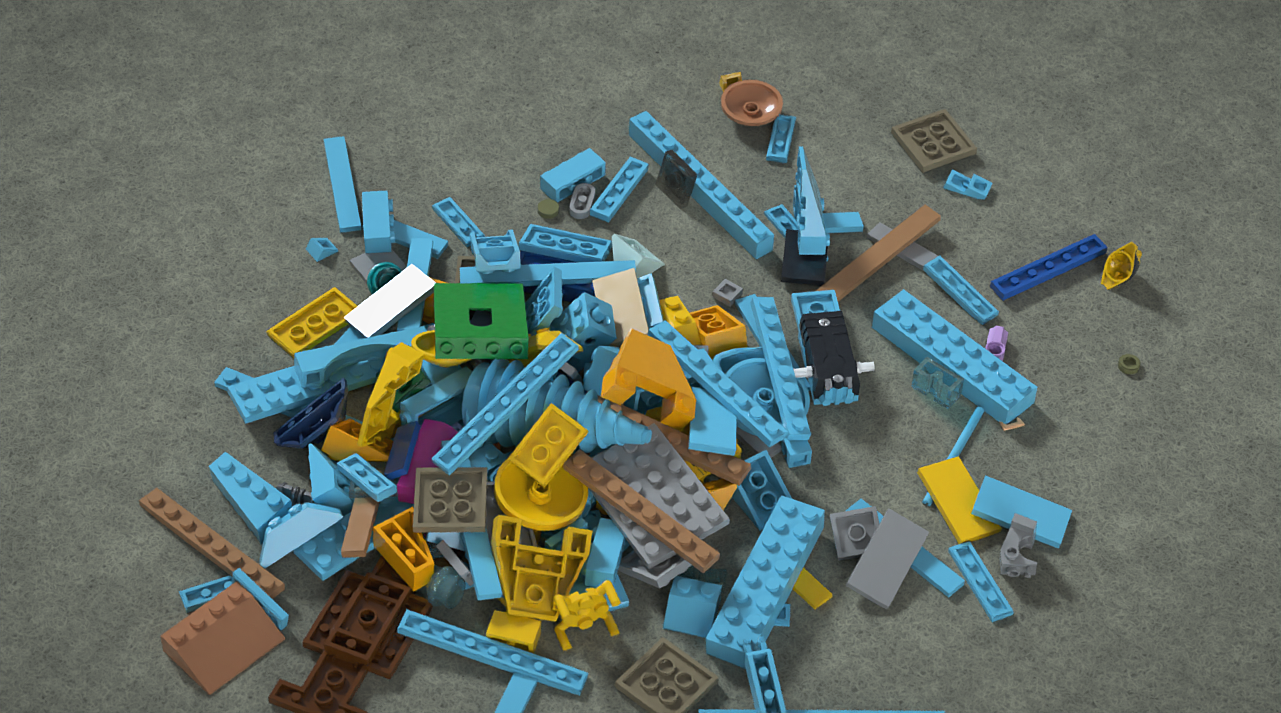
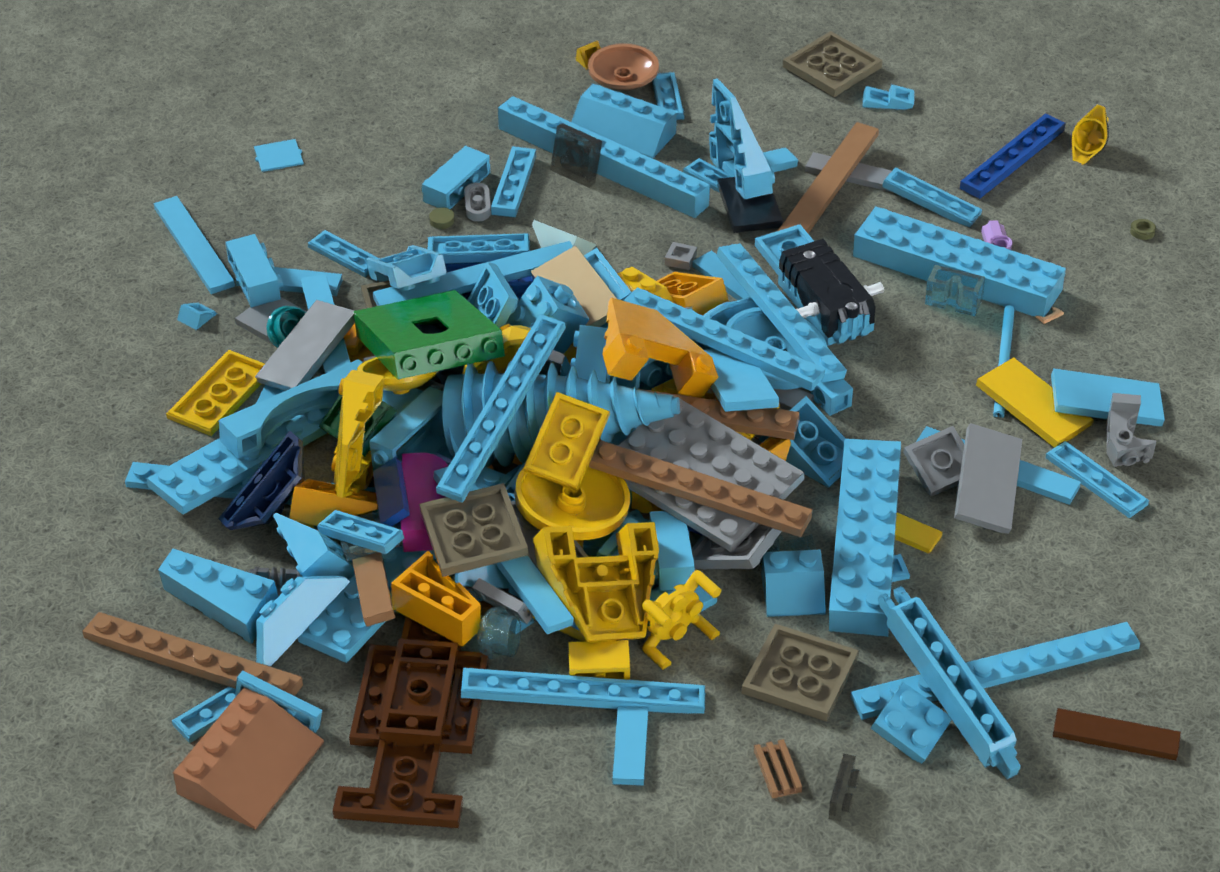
camera: 15 degrees left, 5 degrees down
(439, 117) = (278, 155): none -> medium azure piece
(732, 155) = (625, 120): none -> medium azure slope

